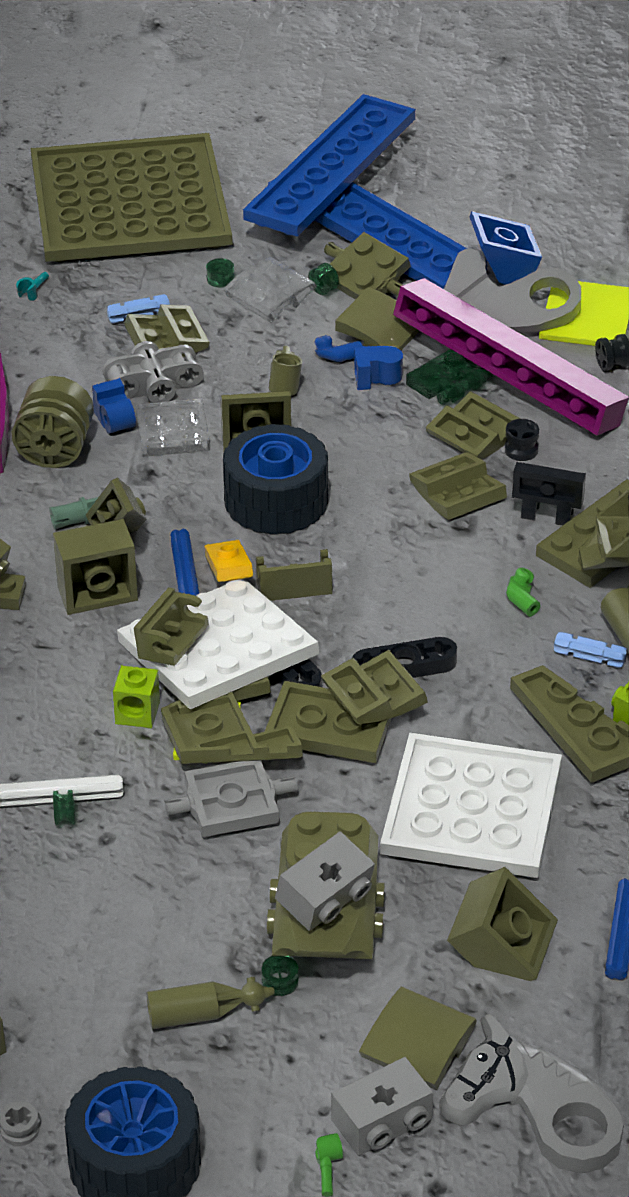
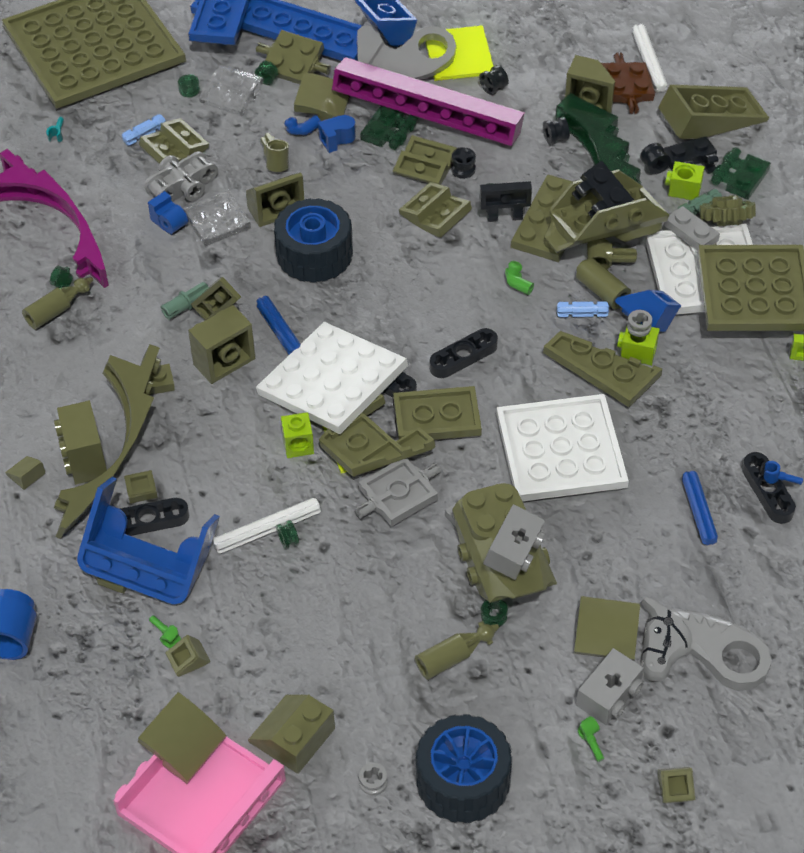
camera: 20 degrees left, 10 degrees up
(52, 422) = (134, 238): olive wheel -> none
(169, 628) = (302, 378): olive hinge -> none
(228, 561) = (309, 311): yellow plate -> none
(295, 579) = (360, 312): olive hinge -> none
(375, 689) = (460, 381): olive slope -> none
(502, 926) = (624, 531): olive slope -> none

